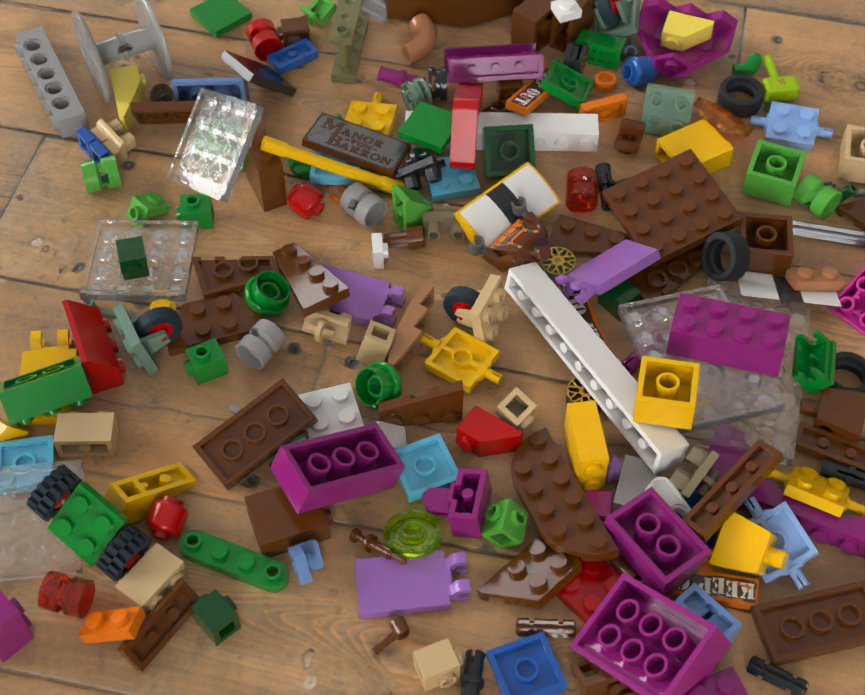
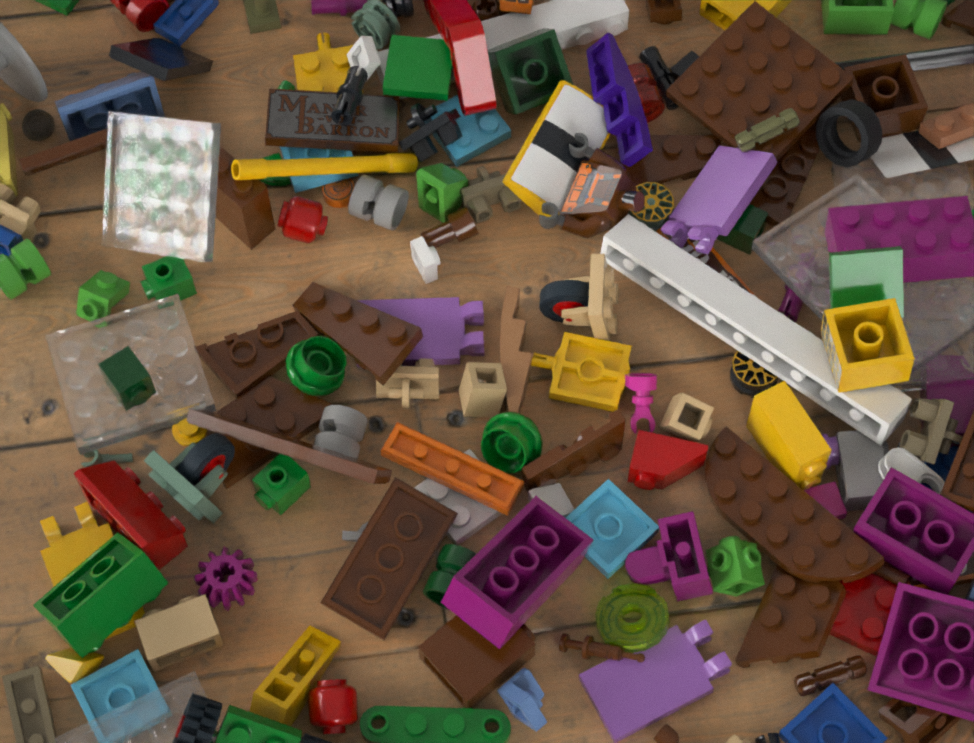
camera: 20 degrees left, 10 degrees up
(137, 410) = (238, 582): none -> magenta gear
(219, 334) = (289, 446): none -> reddish brown tile
(329, 388) = (452, 468): none -> orange tile
(373, 130) = (349, 95): none -> black pin
(396, 112) = (364, 55): none -> white plate
(493, 376) = (642, 384): none -> dark pink piece
(564, 184) = (617, 93): none -> dark purple slope
(661, 234) = (767, 130): none -> olive axle
(688, 344) = (866, 276): none -> tile

